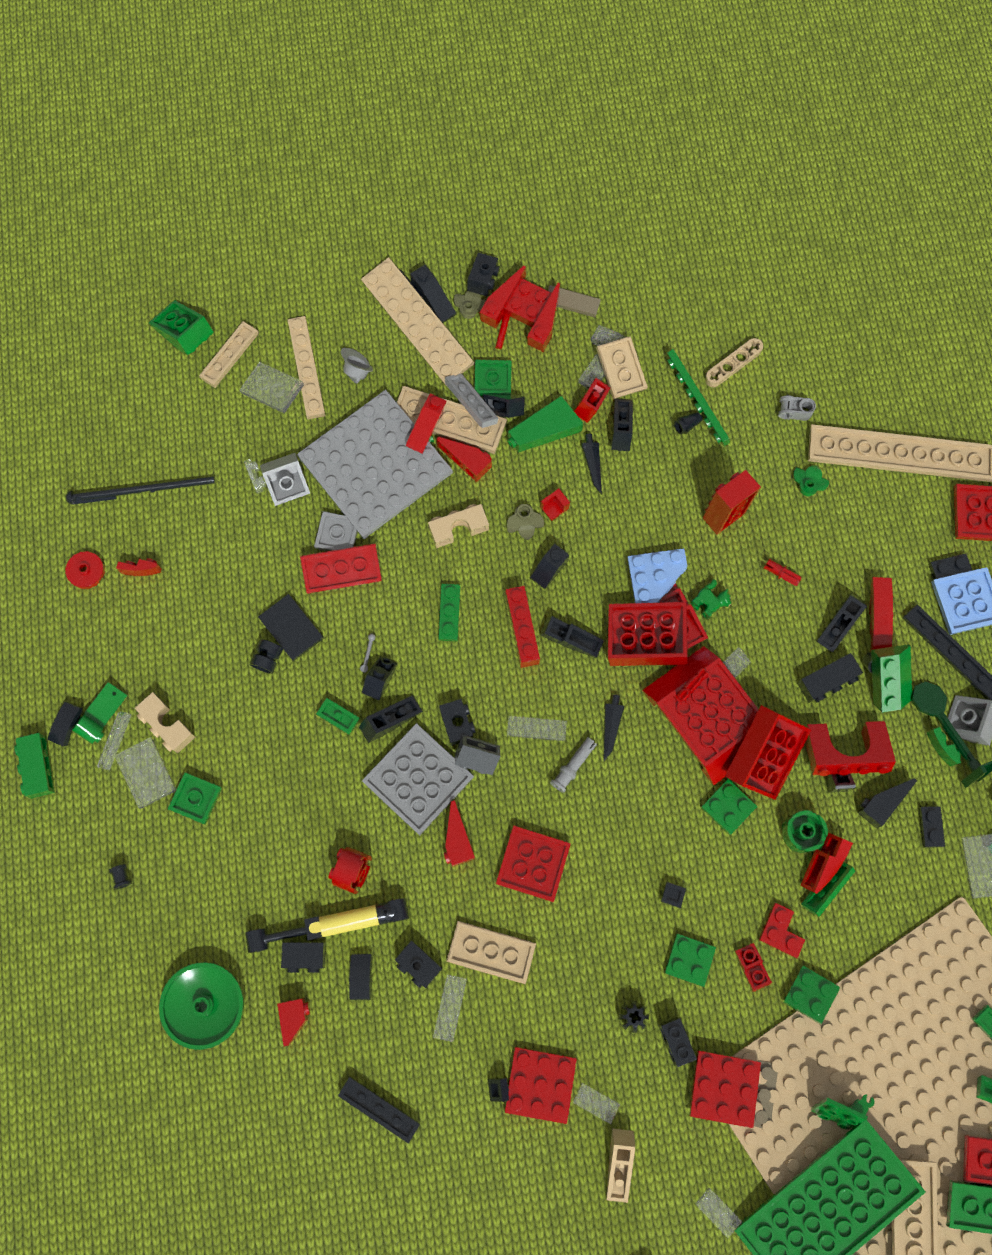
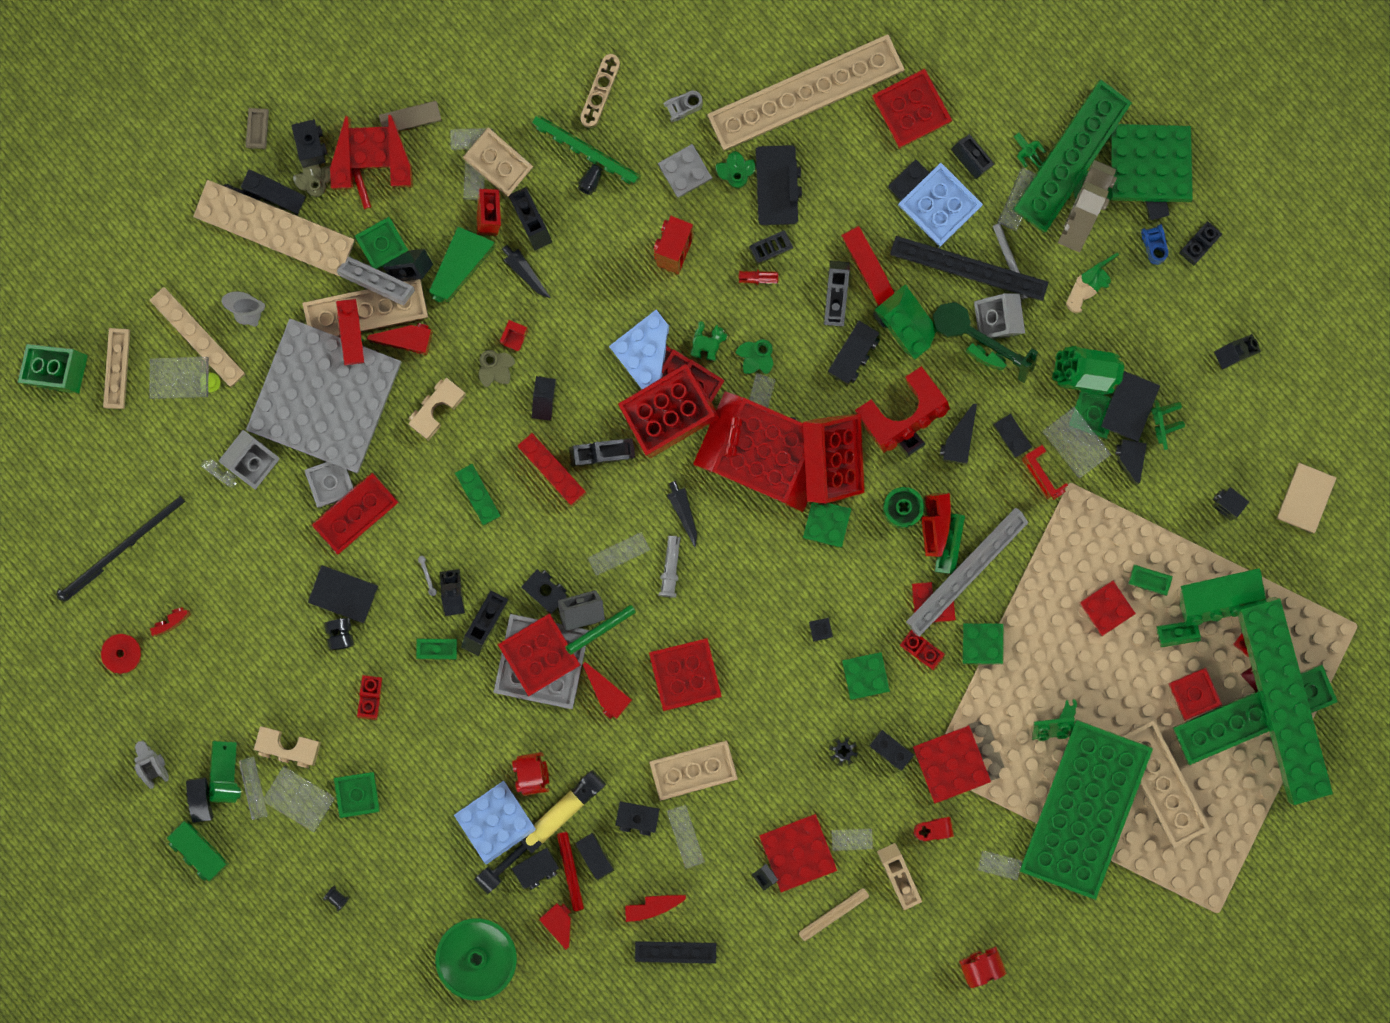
camera: 25 degrees left, 10 degrees up
(43, 670) = (149, 764): none -> light grey hinge
(259, 723) = (369, 697): none -> red slope
(293, 893) = (495, 822): none -> light blue plate
(296, 406) = (213, 382): none -> lime plate
(331, 977) = (570, 871): none -> red axle
(383, 1055) = (653, 906): none -> red slope
(419, 771) = (538, 655): none -> red plate
(450, 245) = (257, 128): none -> dark tan tile
(464, 781) = (600, 629): none -> green piece
(540, 1164) = (834, 914): none -> tan axle
(678, 1142) = (937, 829): none -> red piece
(742, 636) = (754, 358): none -> green plate
(768, 458) = (685, 171): none -> light grey plate
(792, 560) = (759, 260): none -> black slope
(831, 921) = (967, 572): none -> light grey plate
(839, 510) = (777, 185): none -> black bracket
(942, 1030) = (1107, 608): none -> red plate
(945, 856) = (1040, 476): none -> red panel

